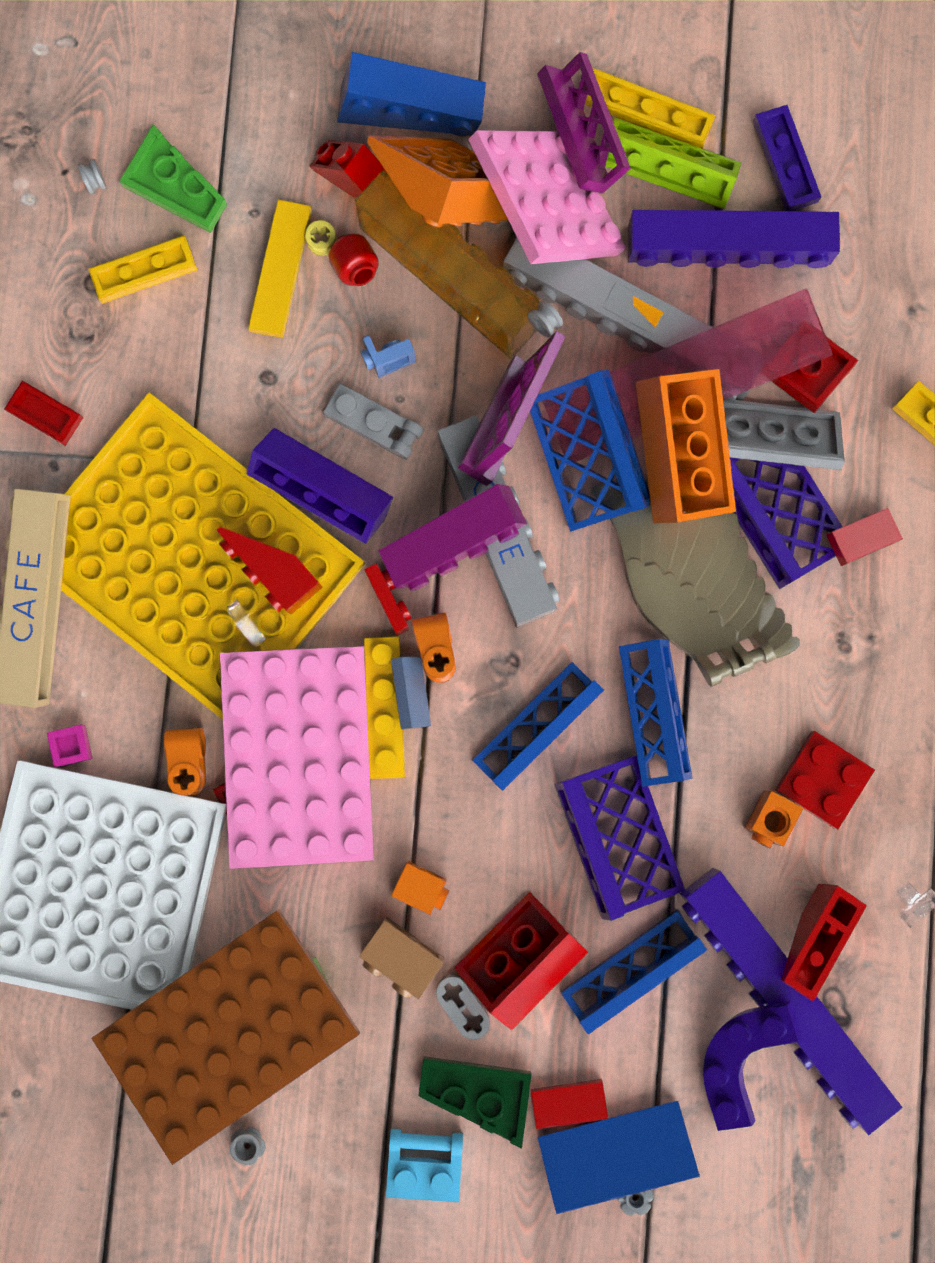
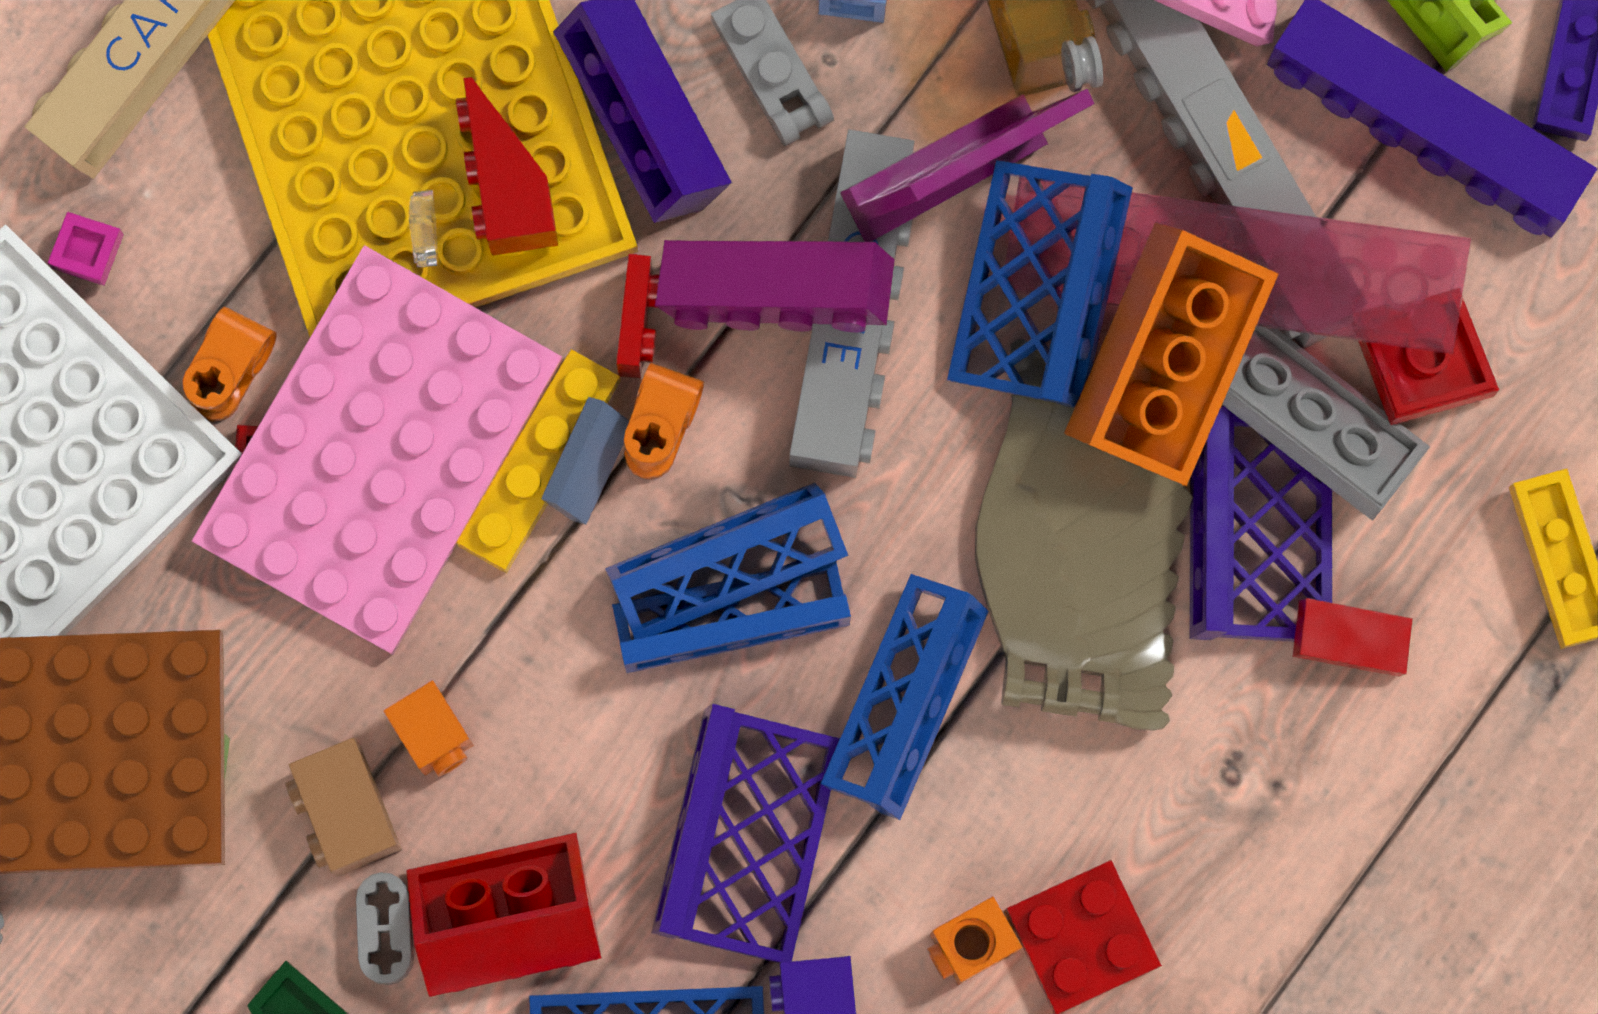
camera: 30 degrees right, 5 degrees down
(507, 693) = (719, 542): none -> blue fence

